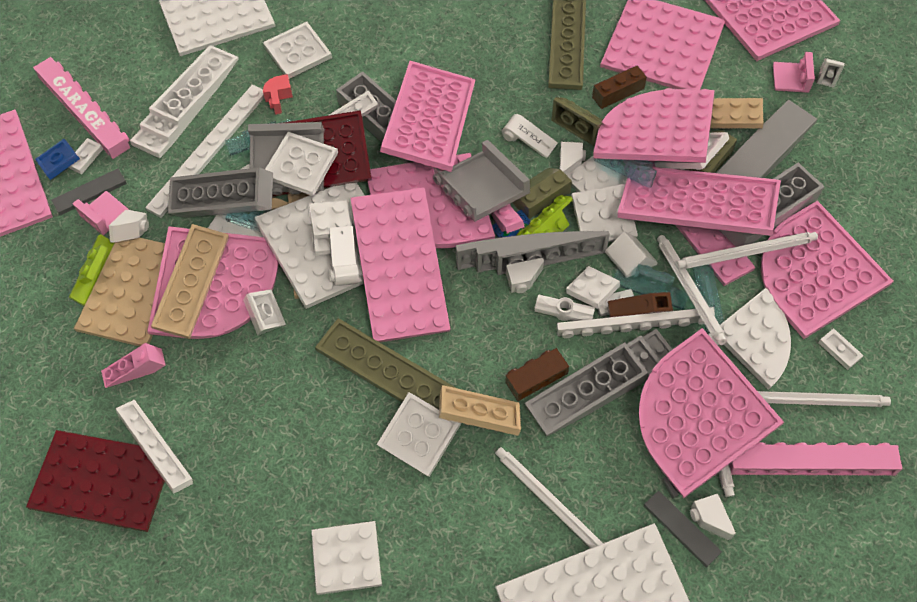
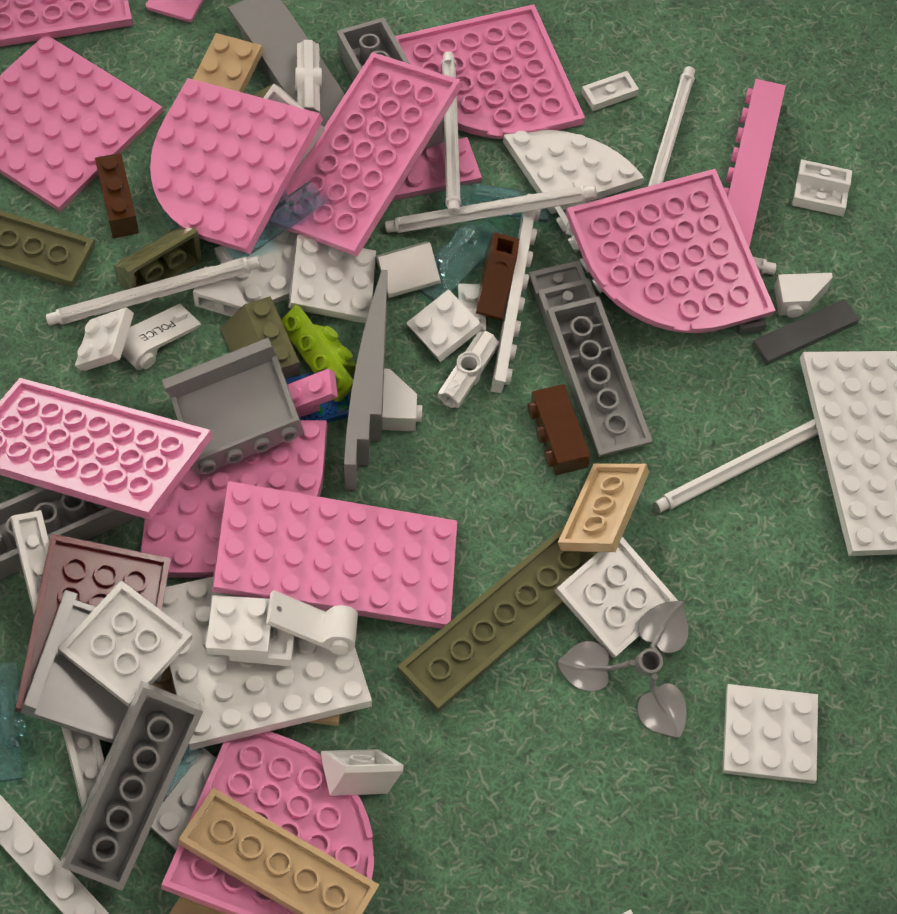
camera: 80 degrees left, 0 degrees up
(367, 430) = (662, 708): none -> light grey plant
(518, 108) = (104, 339): none -> white plate
(556, 124) = (153, 290): none -> white piece
(750, 157) = (308, 75): none -> white piece
(822, 519) = (822, 188): none -> white slope

